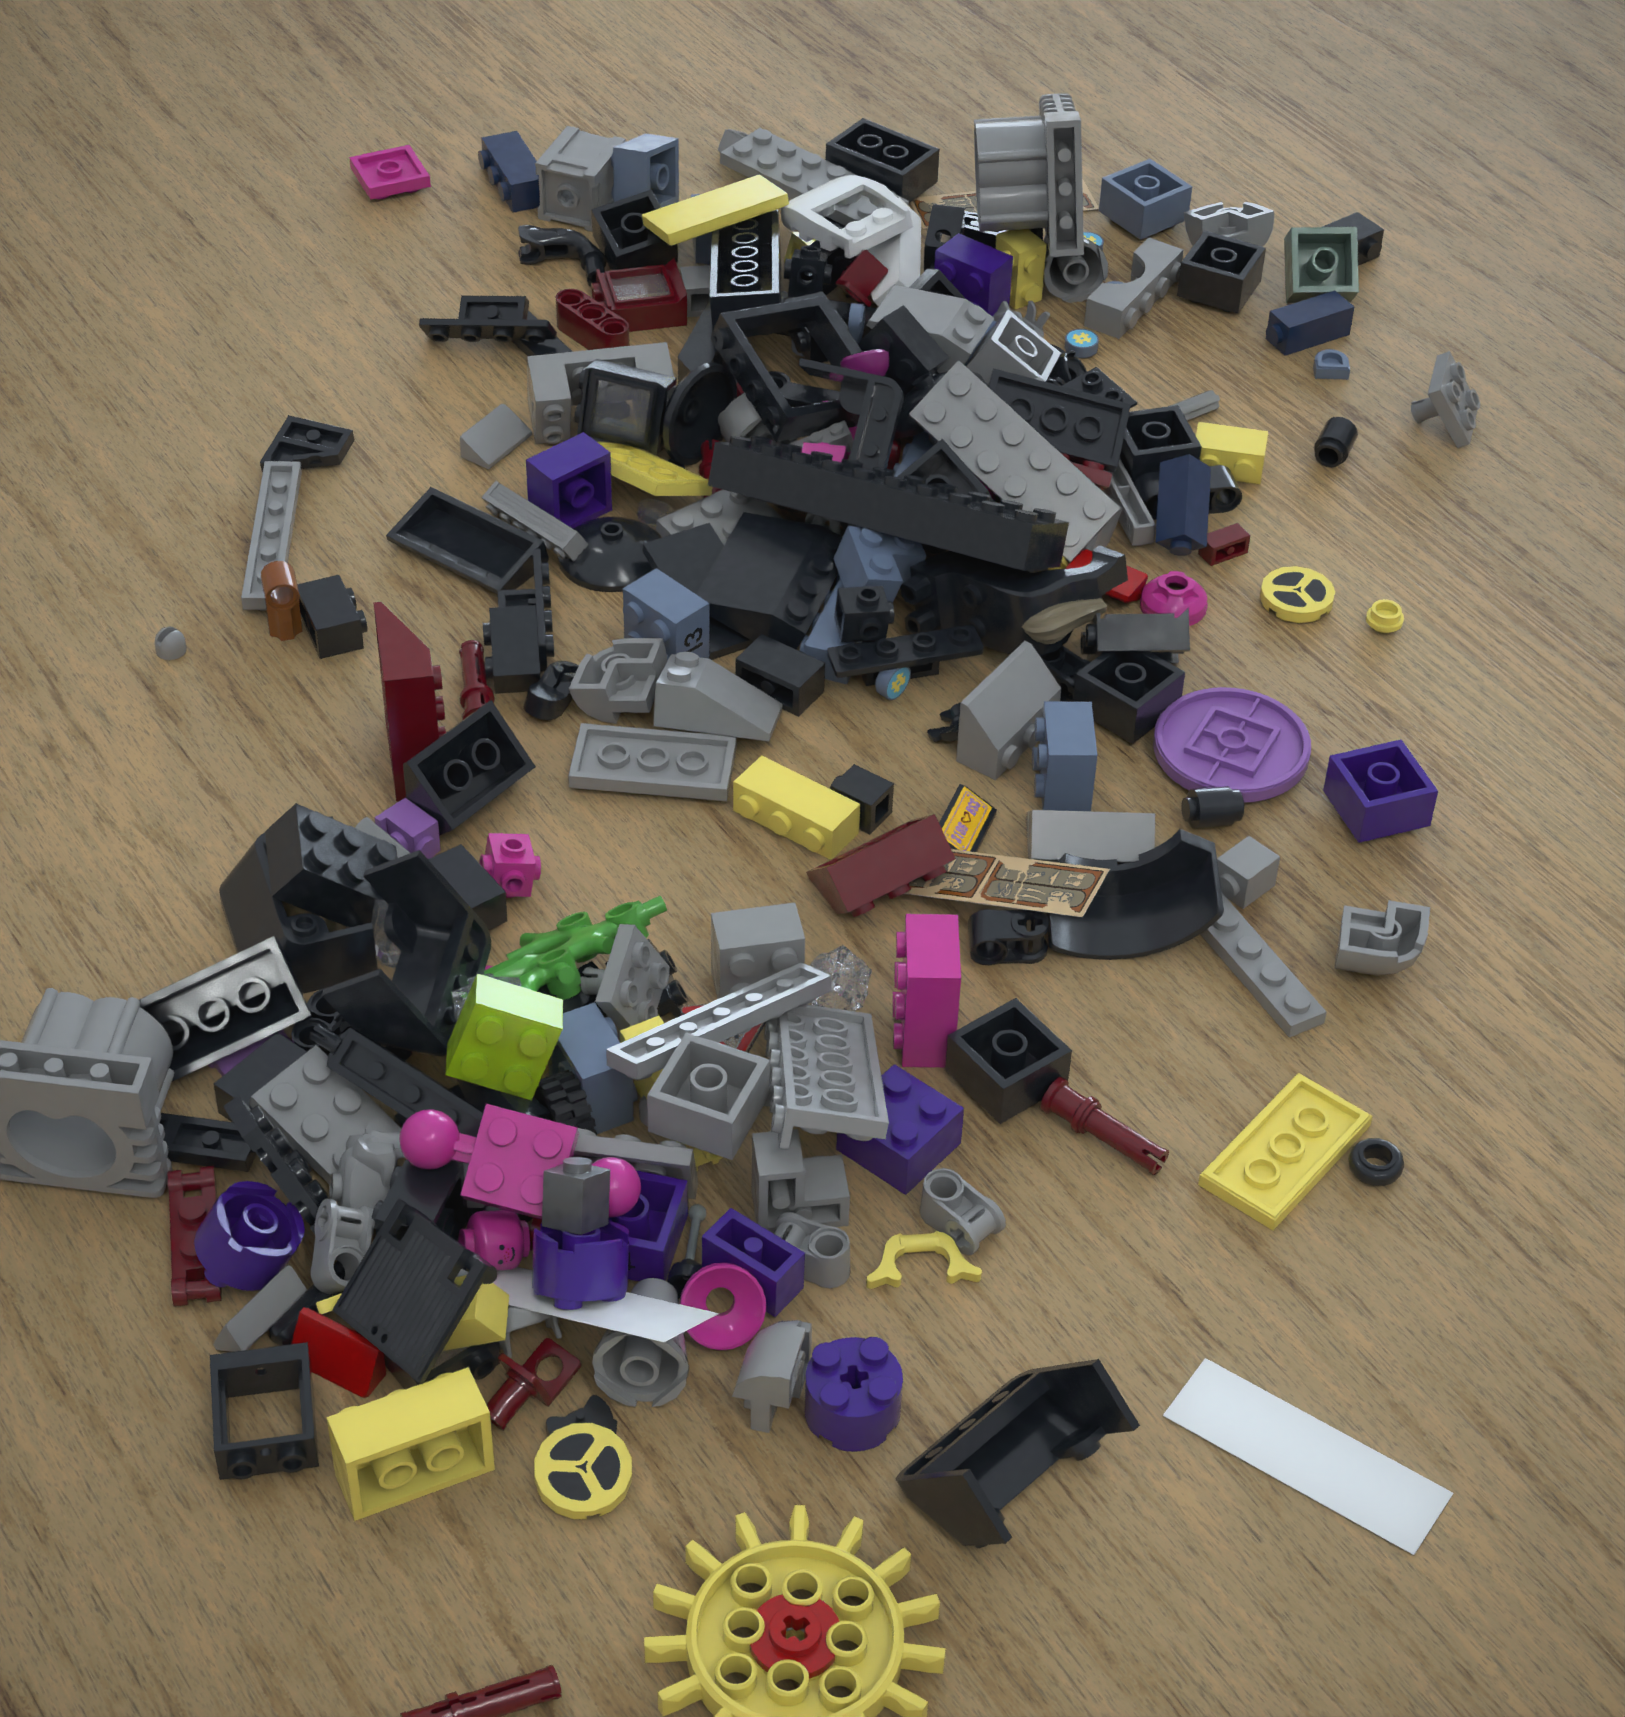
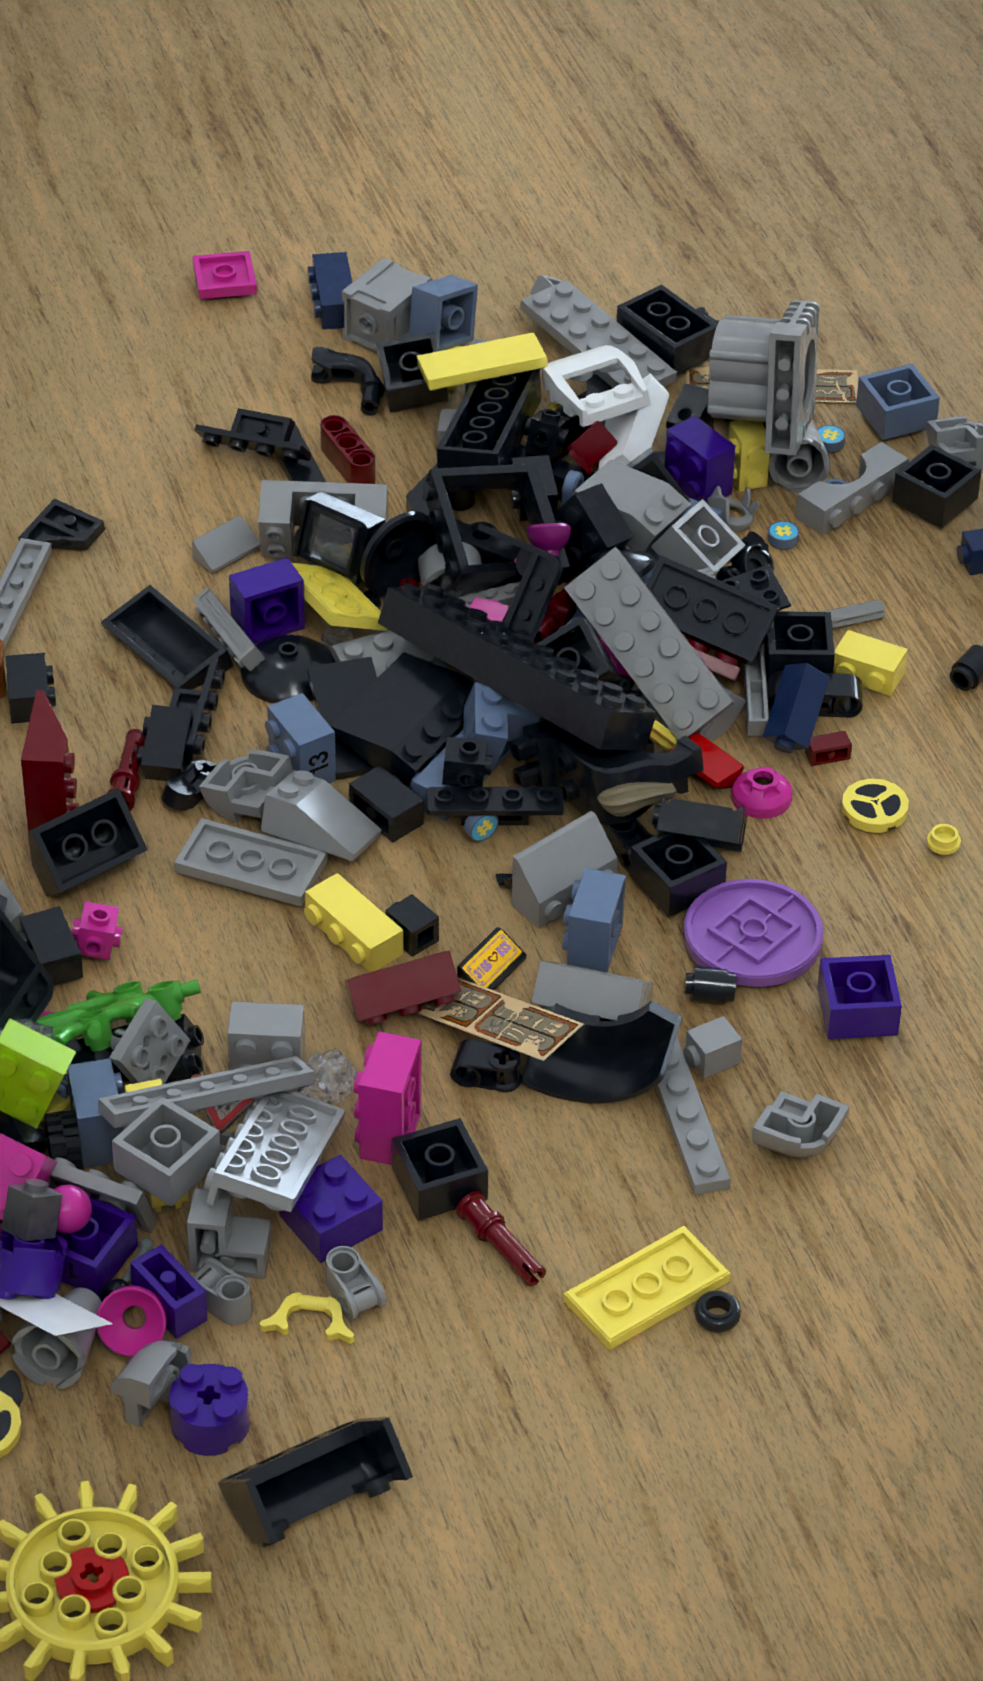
camera: 15 degrees right, 0 degrees up
(411, 827) = (28, 886): medium lavender brick -> none
(644, 296) = (401, 431): dark red window -> none
(1309, 1456) = (558, 1532): white sticker -> none

